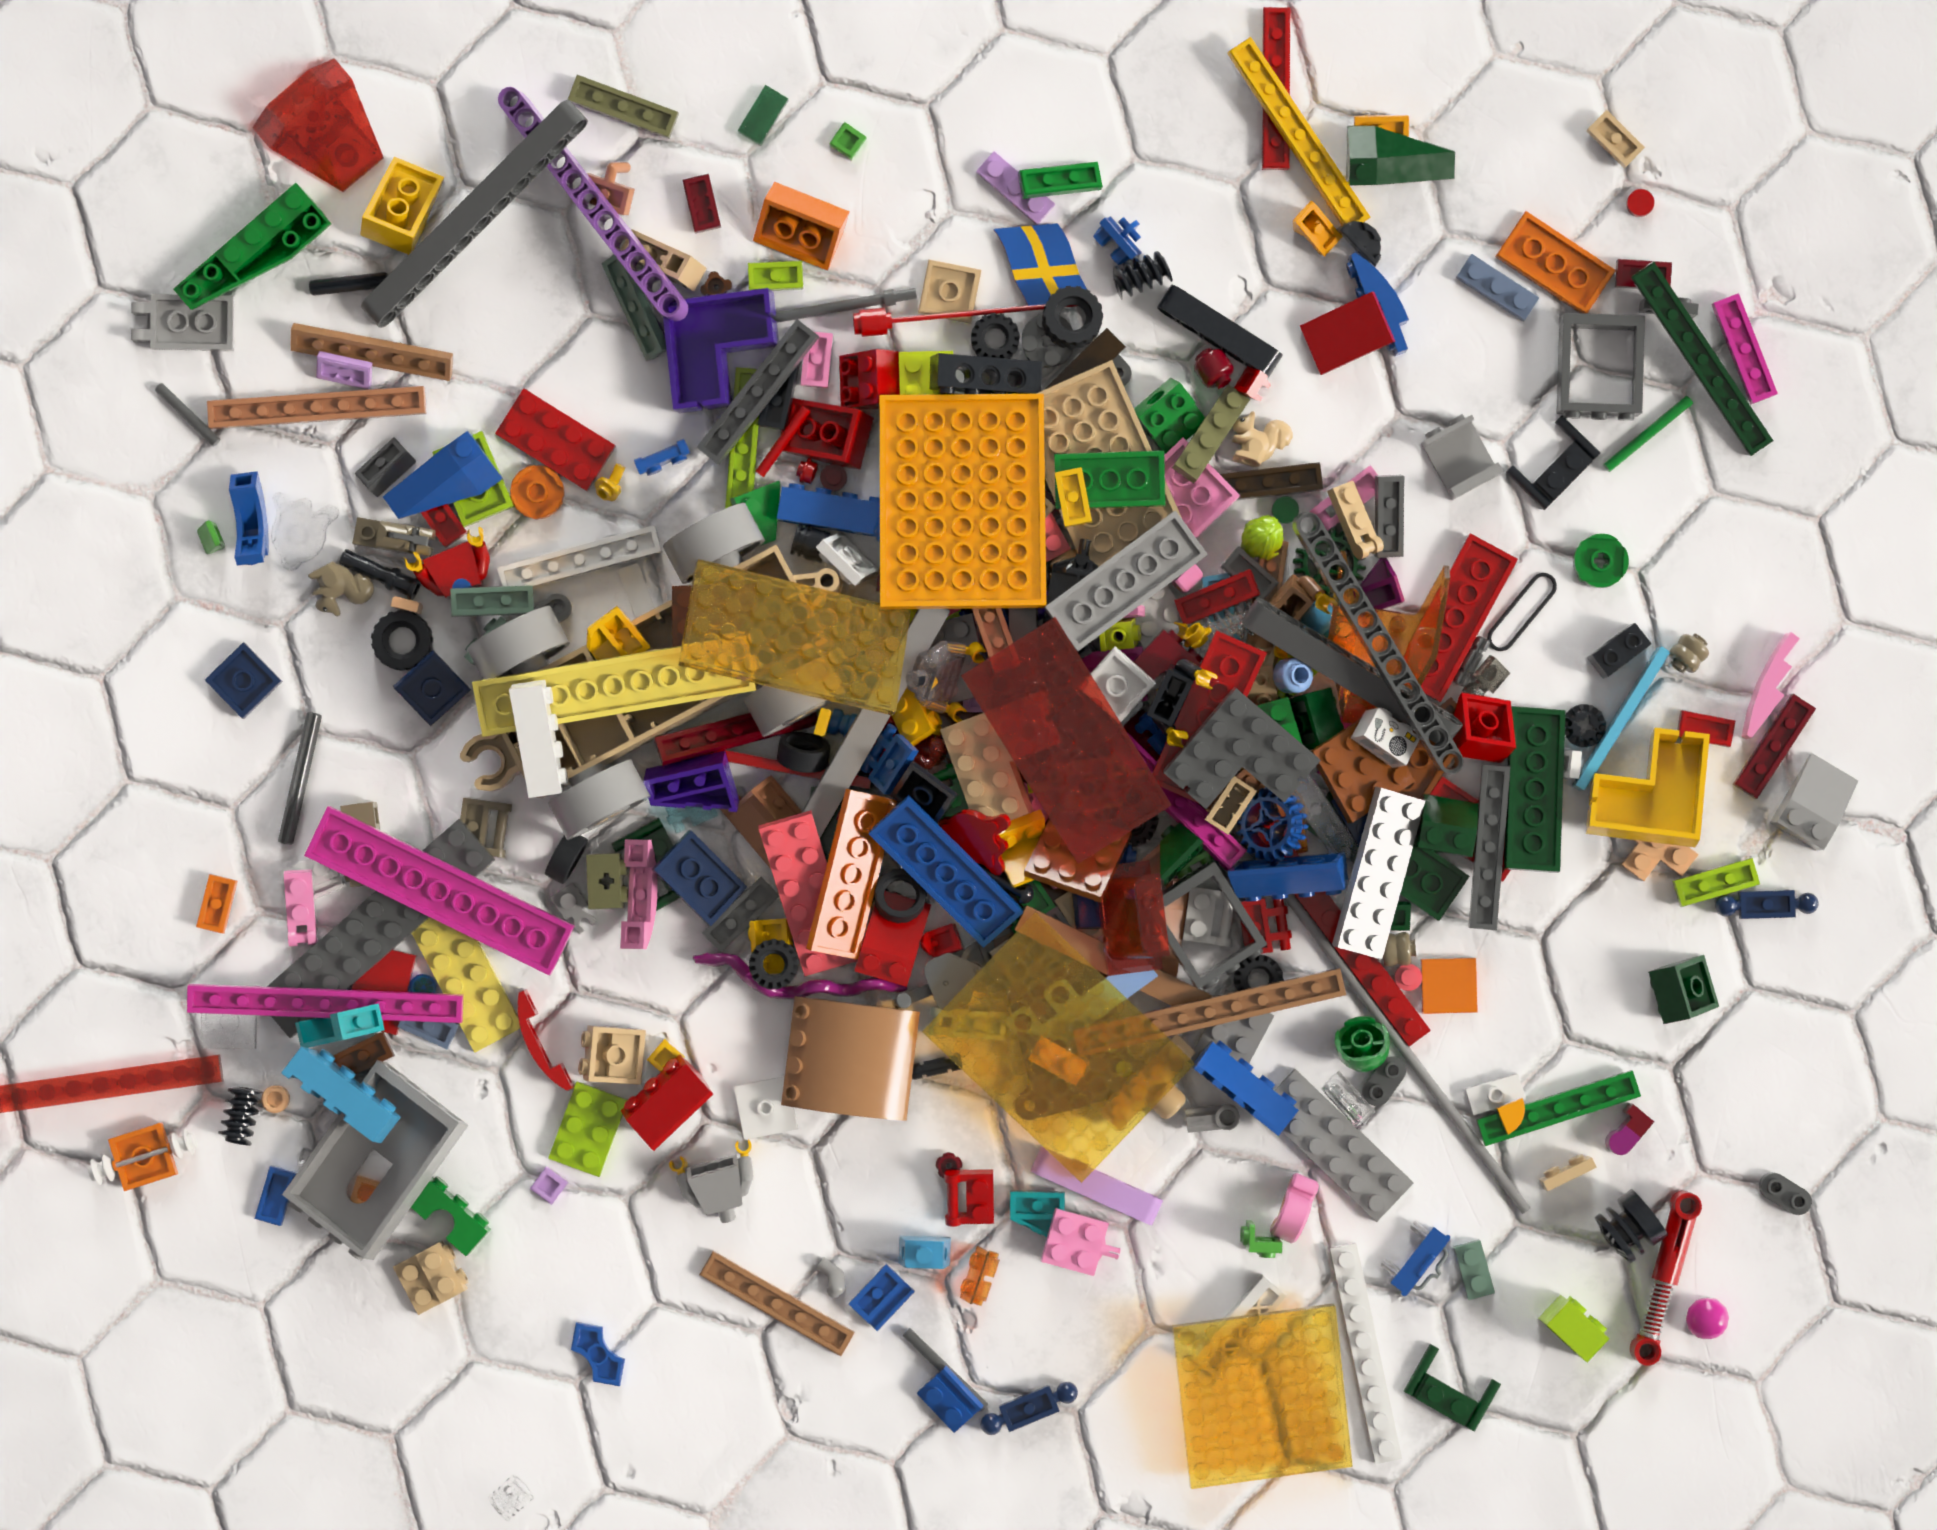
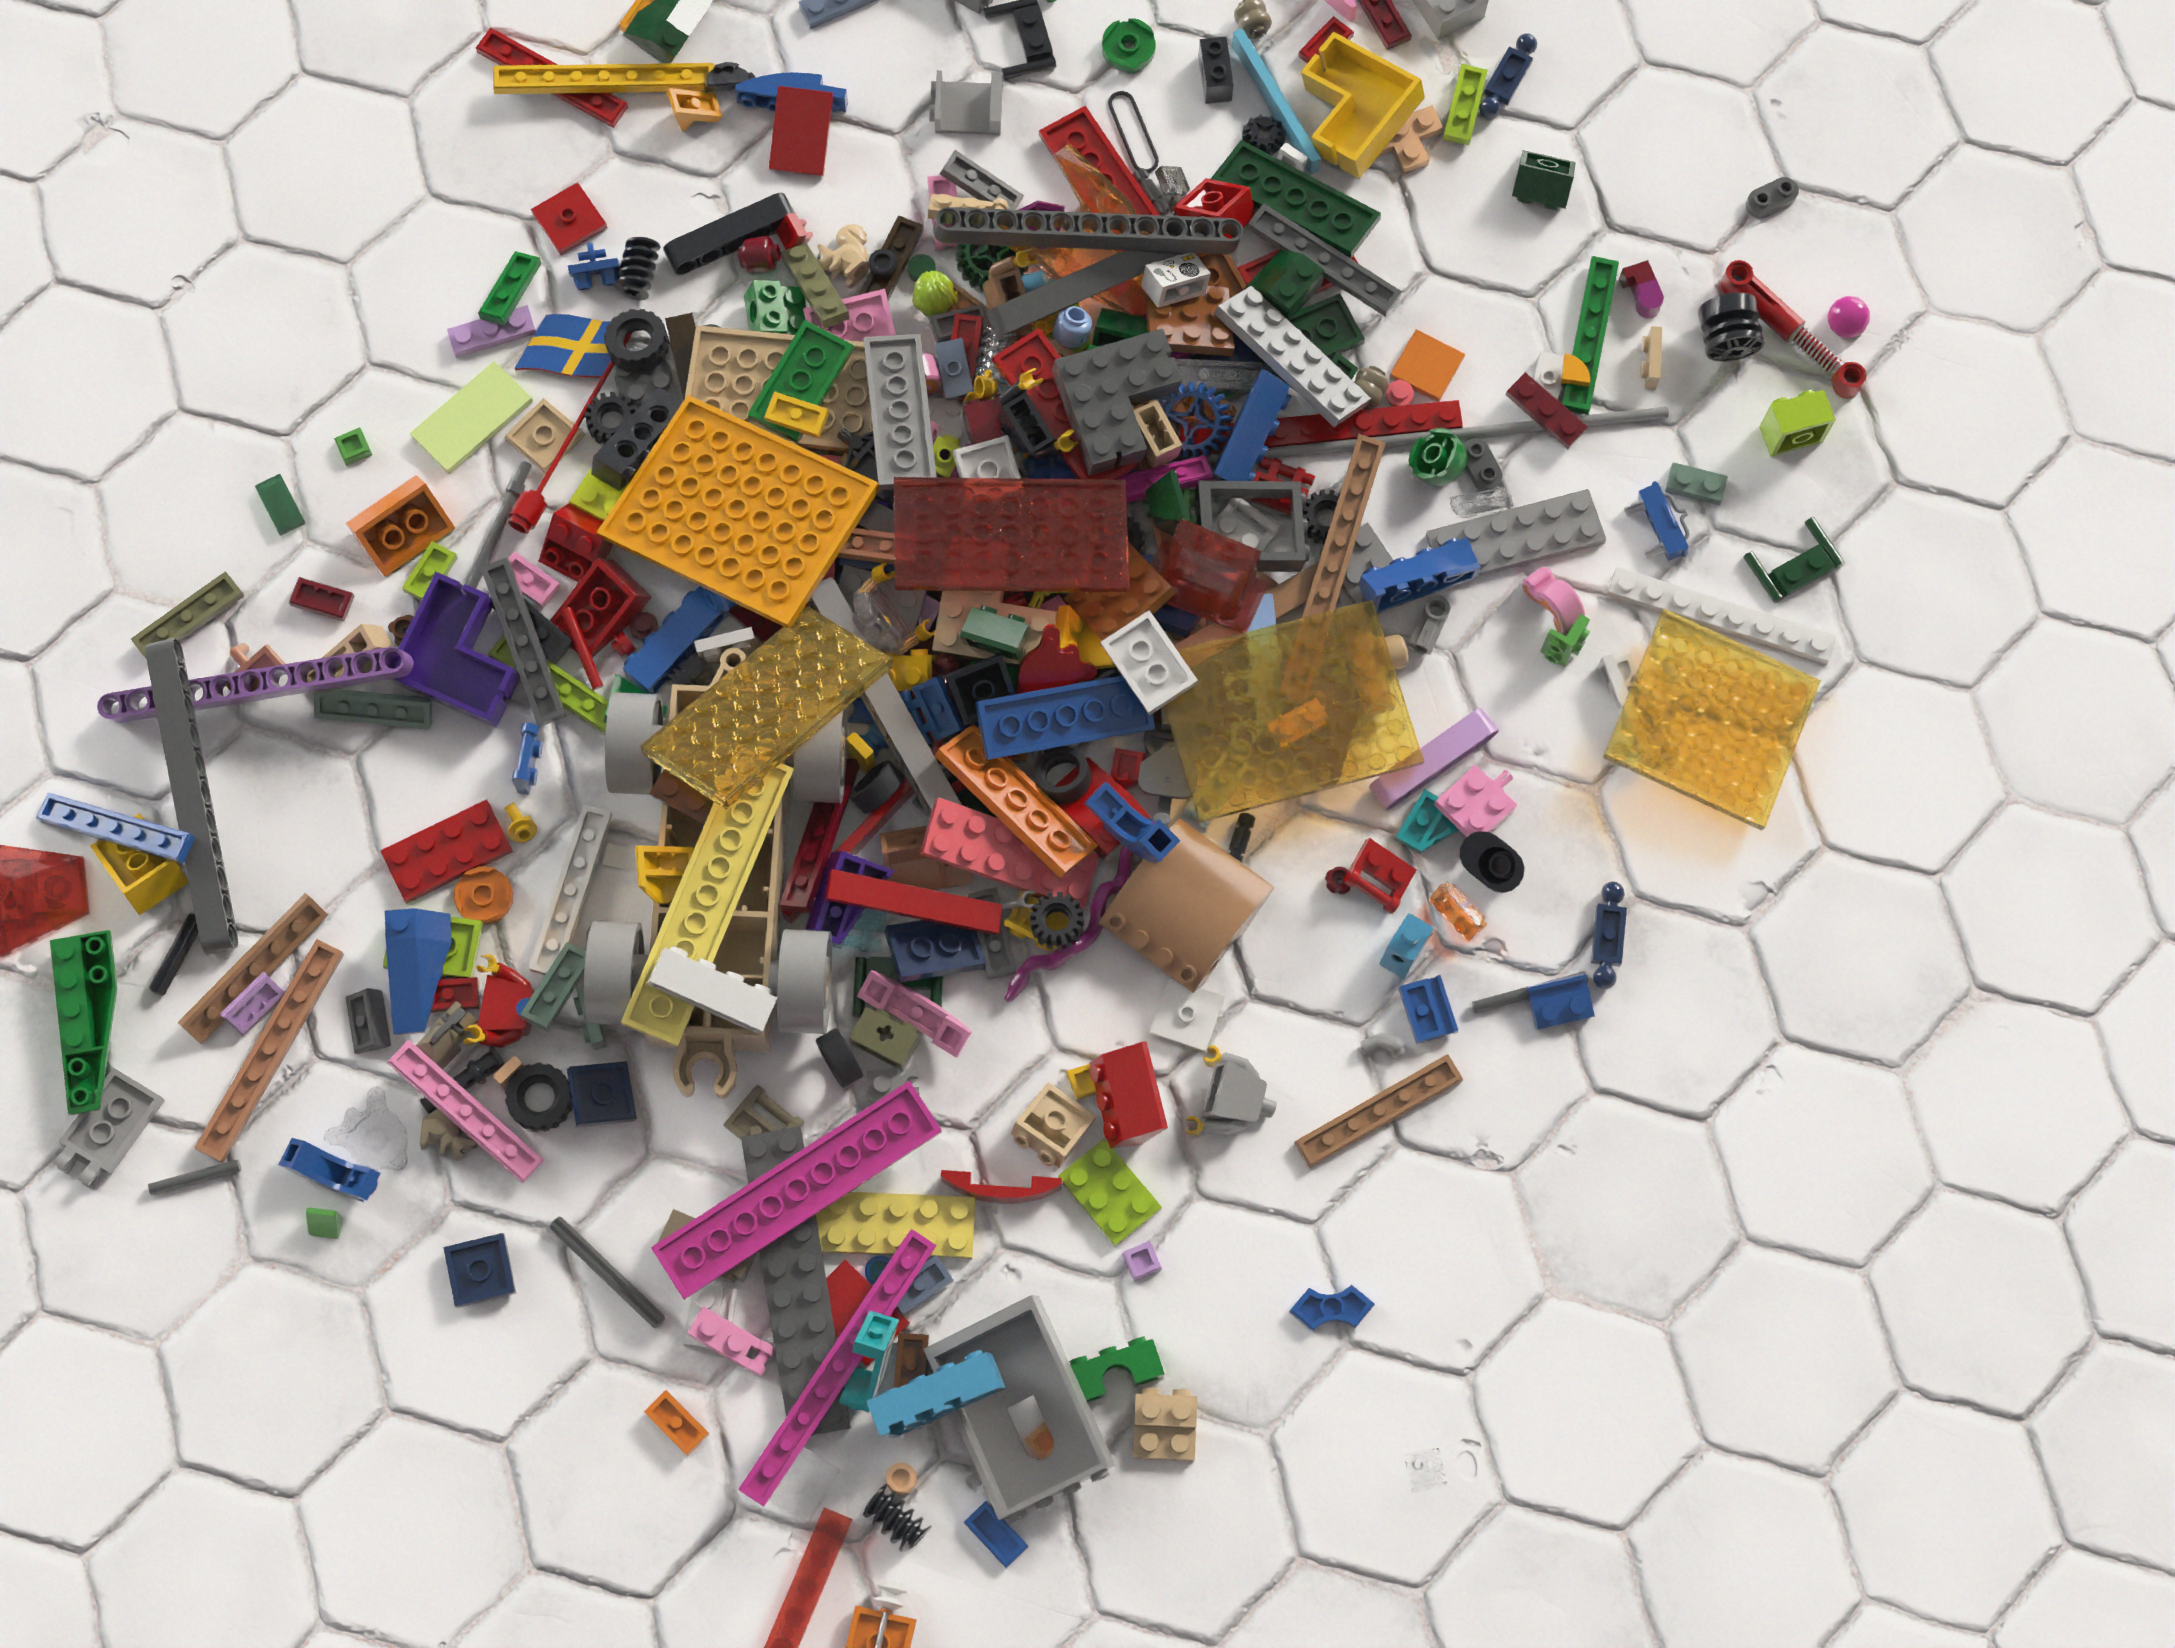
camera: 65 degrees left, 15 degrees down
(354, 592) = (465, 1111): none -> bright pink tile
(414, 171) = (115, 828): none -> tile
(719, 842) = (913, 902): none -> red tile
(775, 925) = (1021, 902): none -> light grey hand
(880, 981) = (1140, 835): none -> blue arch
(930, 221) = (471, 417): none -> yellowish green tile
(974, 777) = (995, 632): none -> slope
(1026, 915) = (1149, 662): none -> white plate
(1032, 1283) = (1492, 861): none -> black piece
(1154, 187) = (569, 218): none -> red plate
(1200, 598) = (954, 368): none -> sand blue plate
(1265, 477) = (882, 263): none -> black tile
(1463, 1110) = (1546, 410): none -> dark red plate

